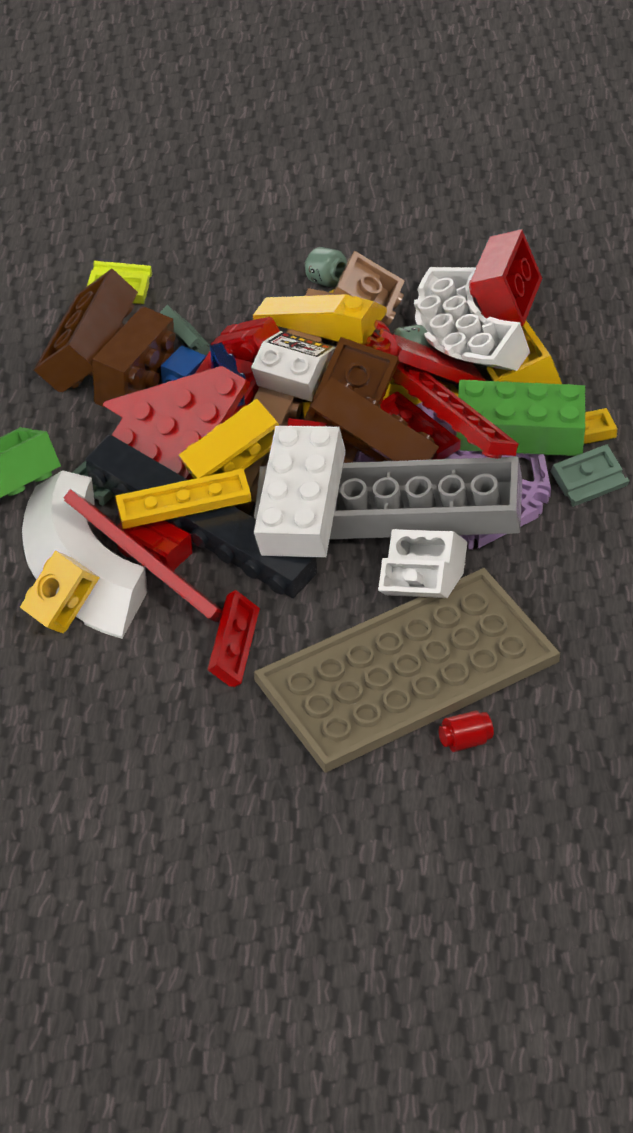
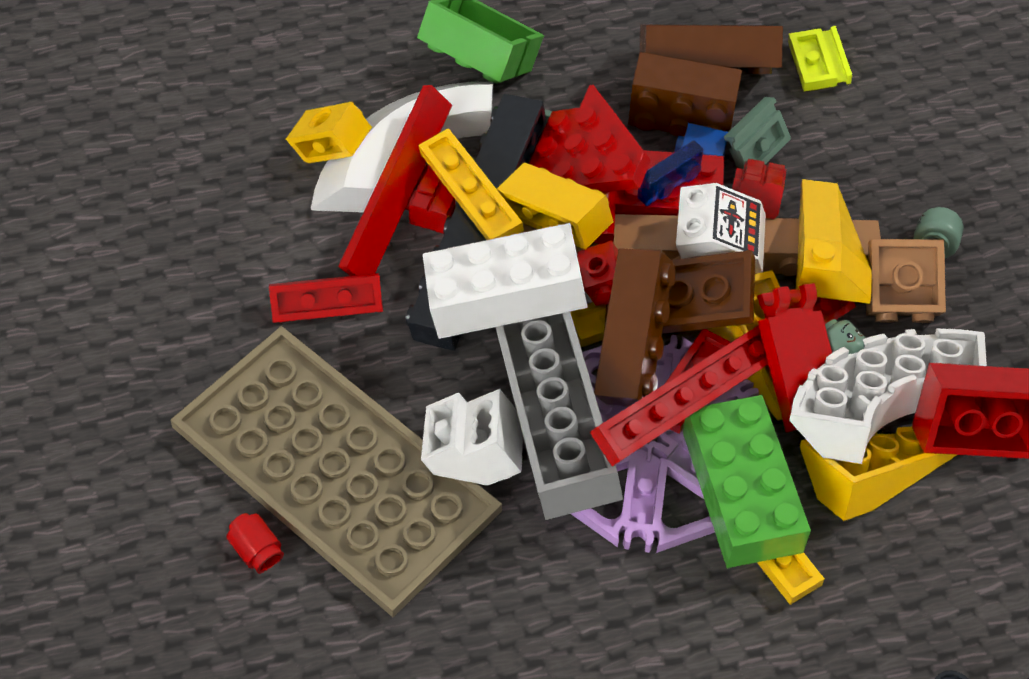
camera: 70 degrees right, 10 degrees up
(589, 475) = (703, 586): sand green plate -> none

